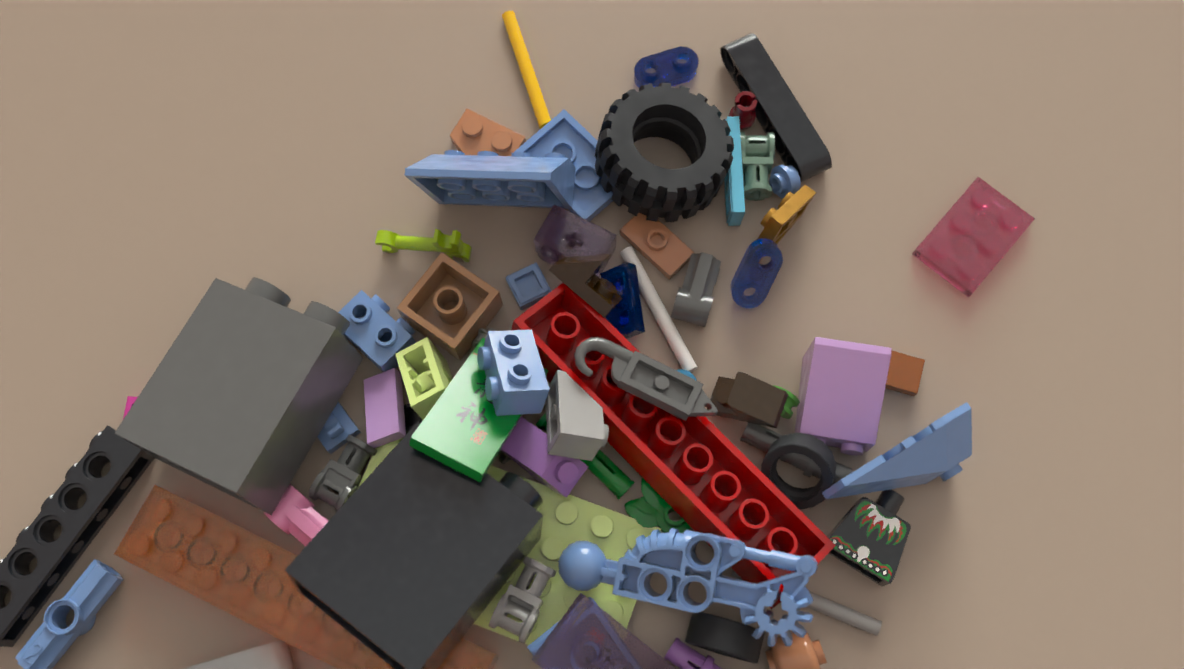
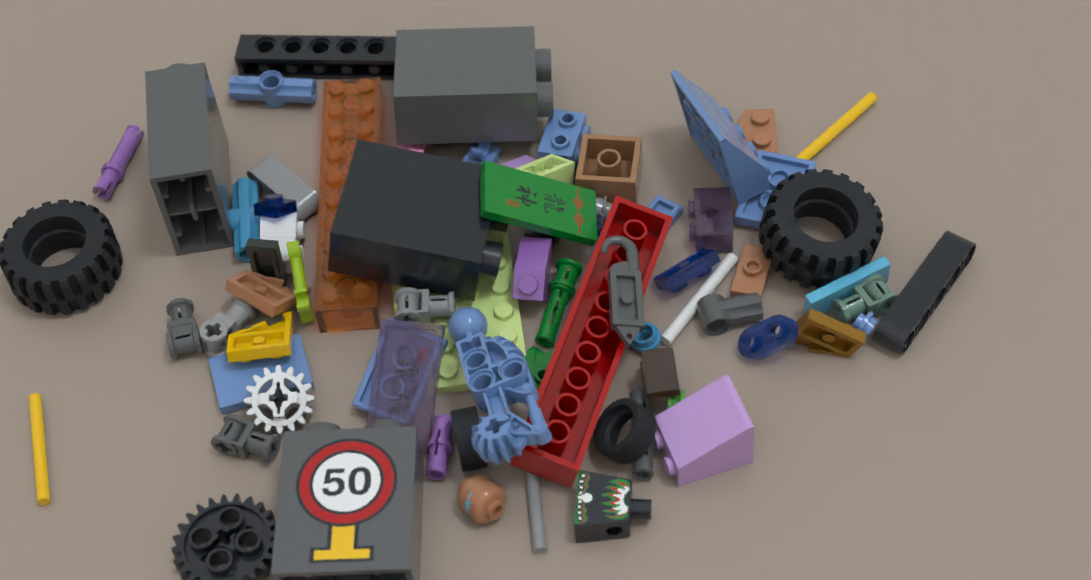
camera: 65 degrees right, 20 degrees down
(449, 244) = (651, 137): lime bar -> none
(513, 372) = (574, 207): medium blue brick -> none
(573, 420) = (564, 263): light grey slope -> none
(580, 276) = (679, 230): dark brown slope -> none
(667, 67) = (901, 211): clear blue plate -> none
(744, 108) = (902, 269): dark red pin -> none
(904, 373) = (758, 478): dark orange tile -> none
(916, 459) = (690, 503): medium blue wedge -> none
(973, 236) = (918, 480): clear pink plate -> none

